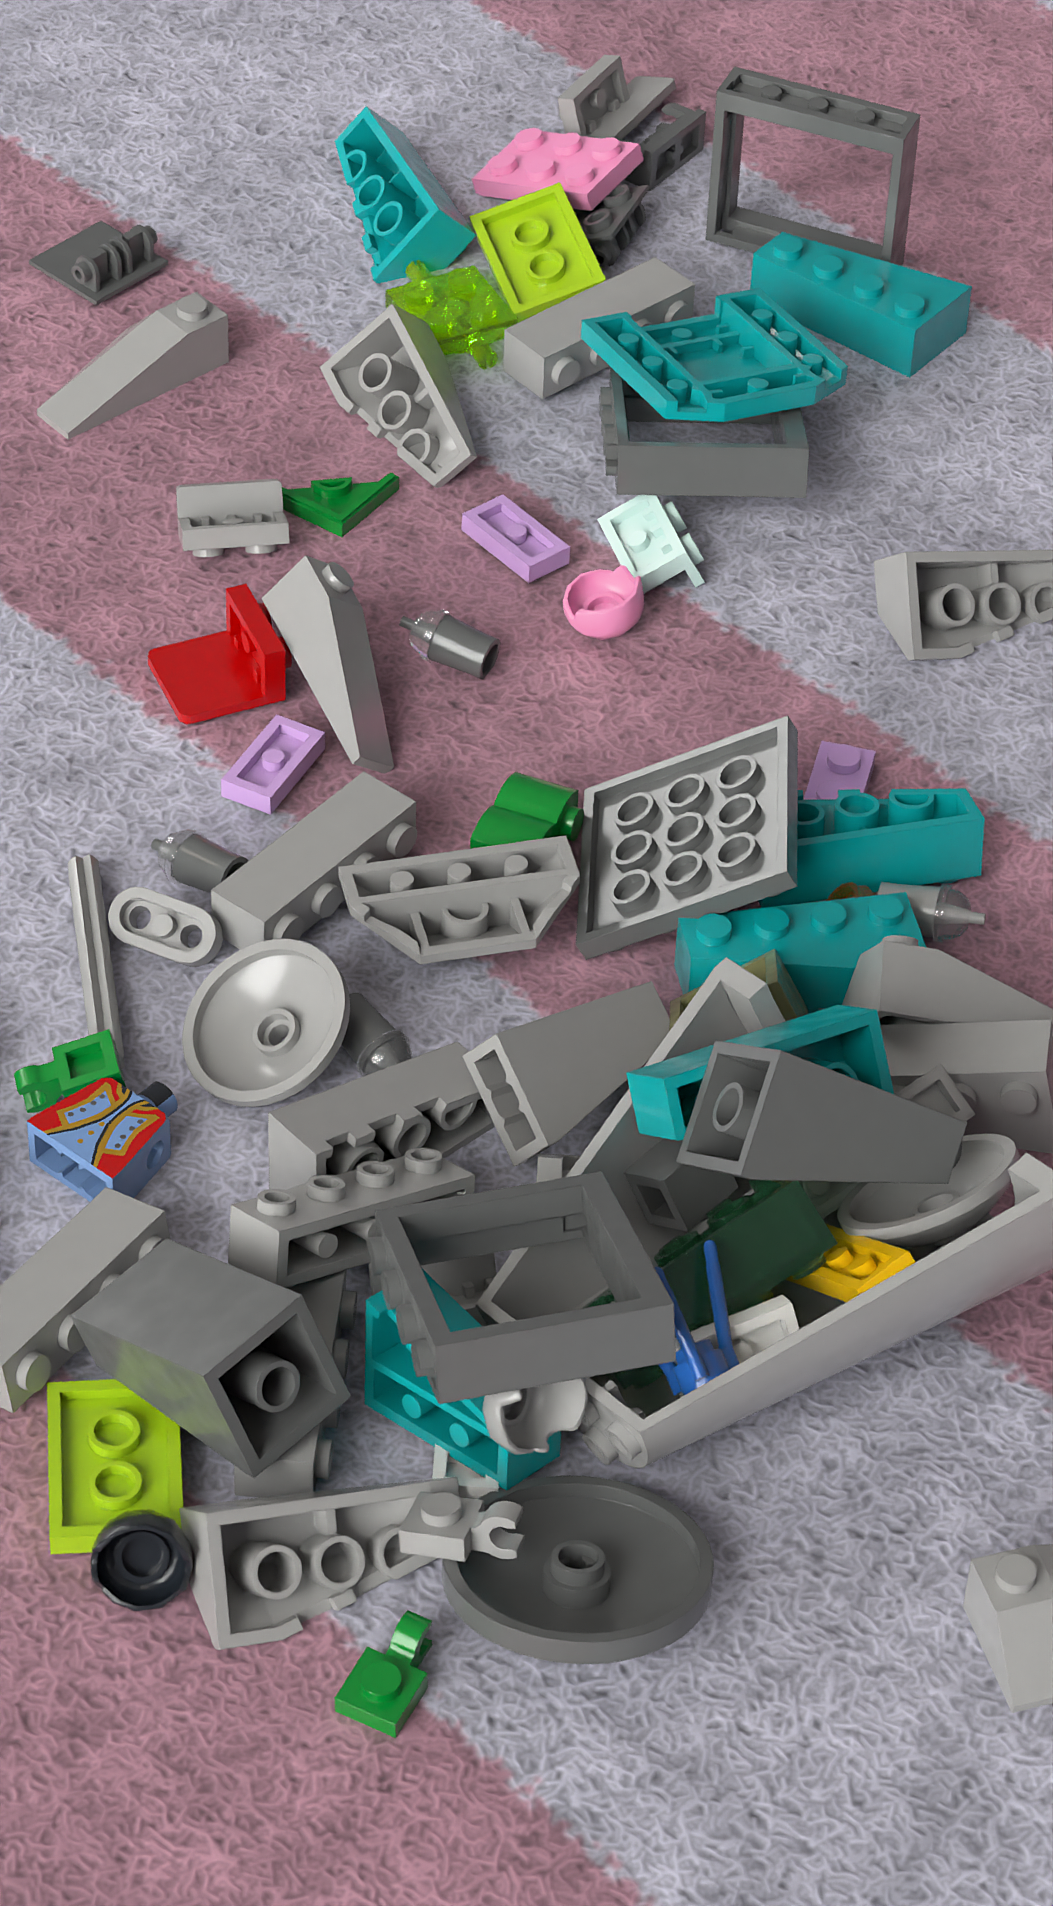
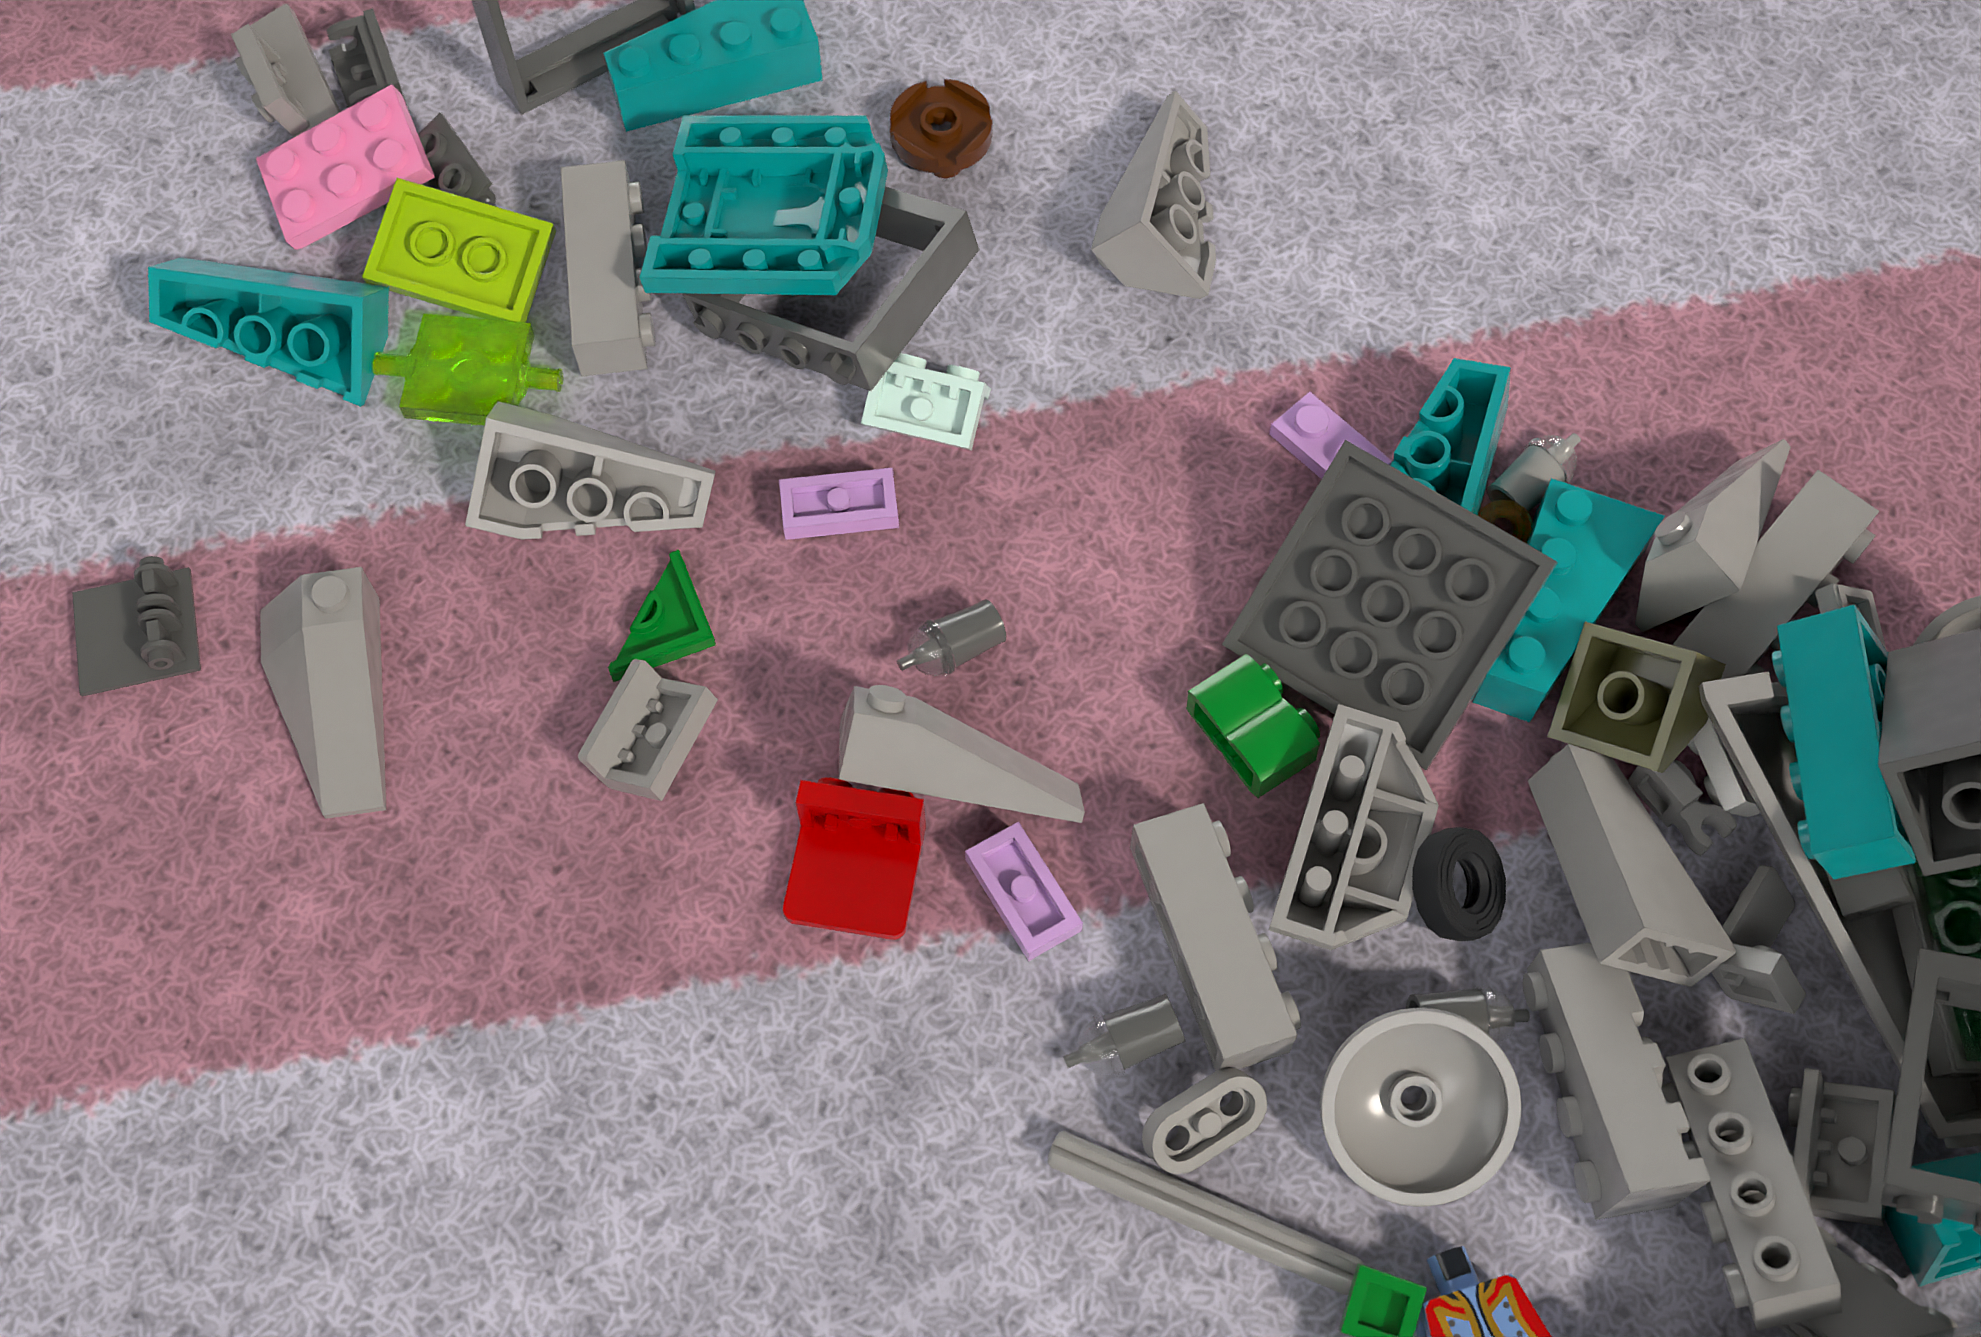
camera: 55 degrees left, 20 degrees up
(515, 975) = (1434, 884): none -> black tyre
(604, 602) = (987, 483): bright pink hair -> none
(903, 463) = (941, 151): none -> reddish brown plate

